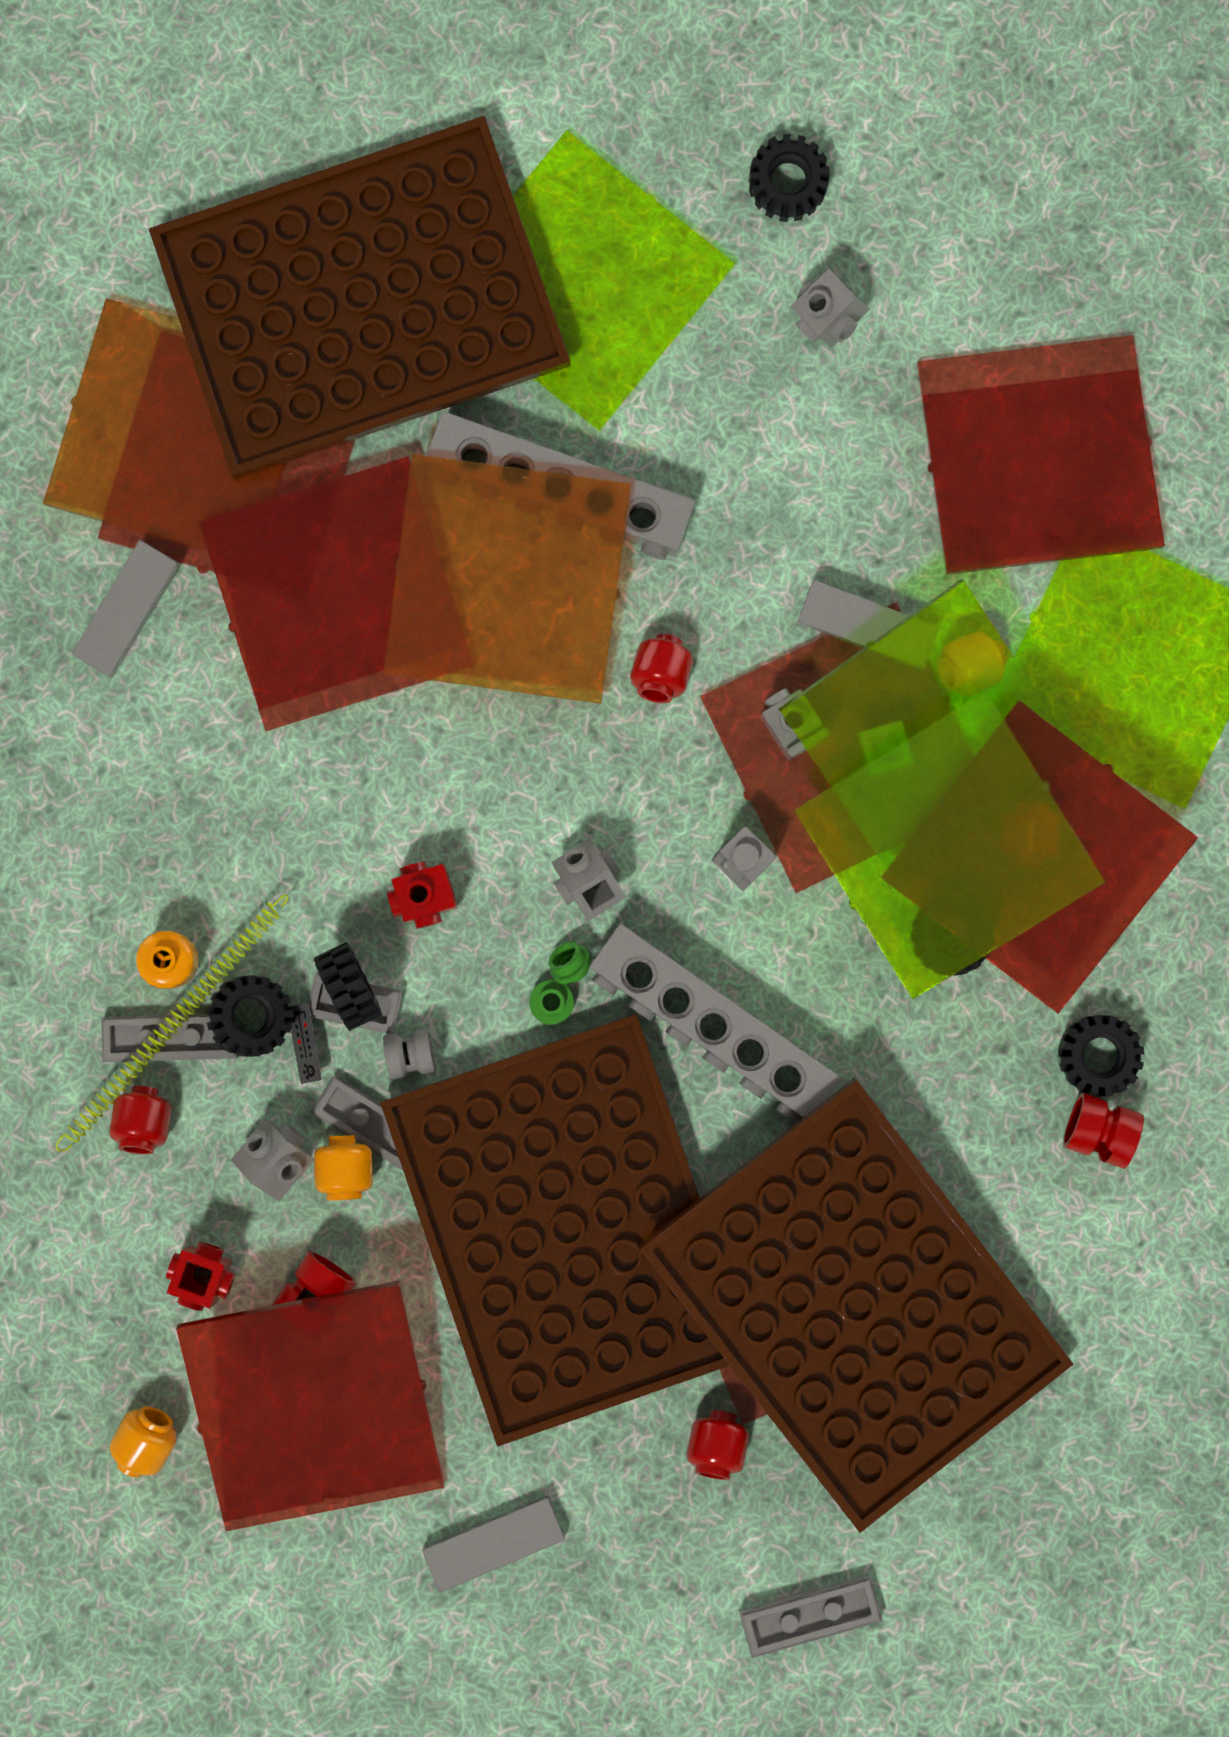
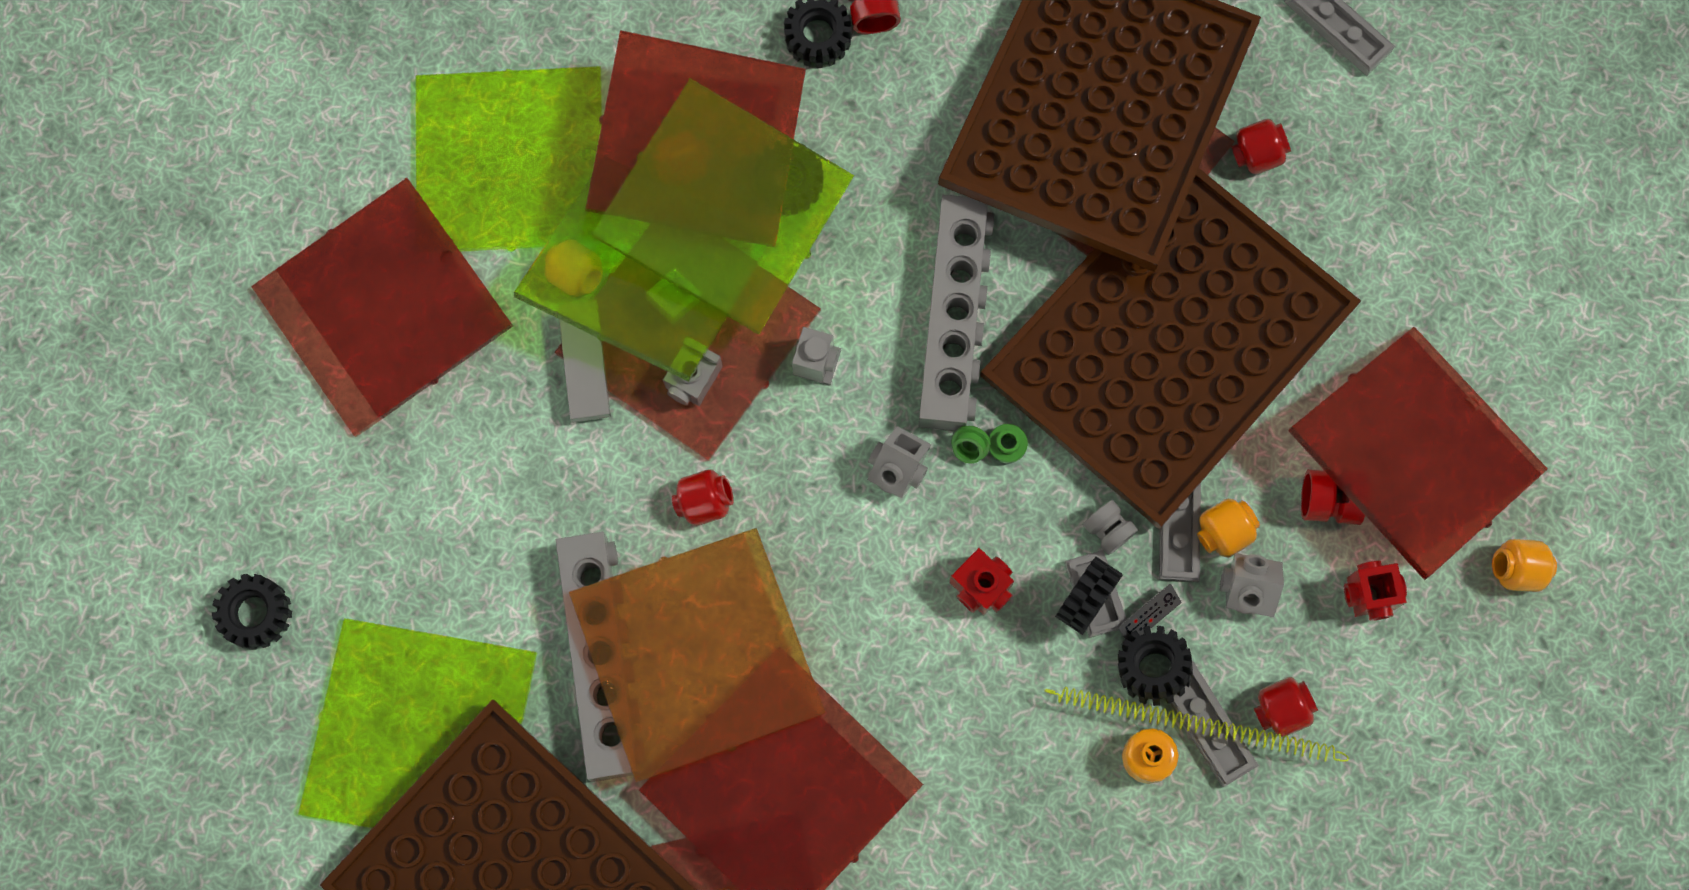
camera: 120 degrees left, 10 degrees down
(493, 1544) = (1431, 269): light grey tile -> none
(828, 309) = (331, 522): light grey brick -> none

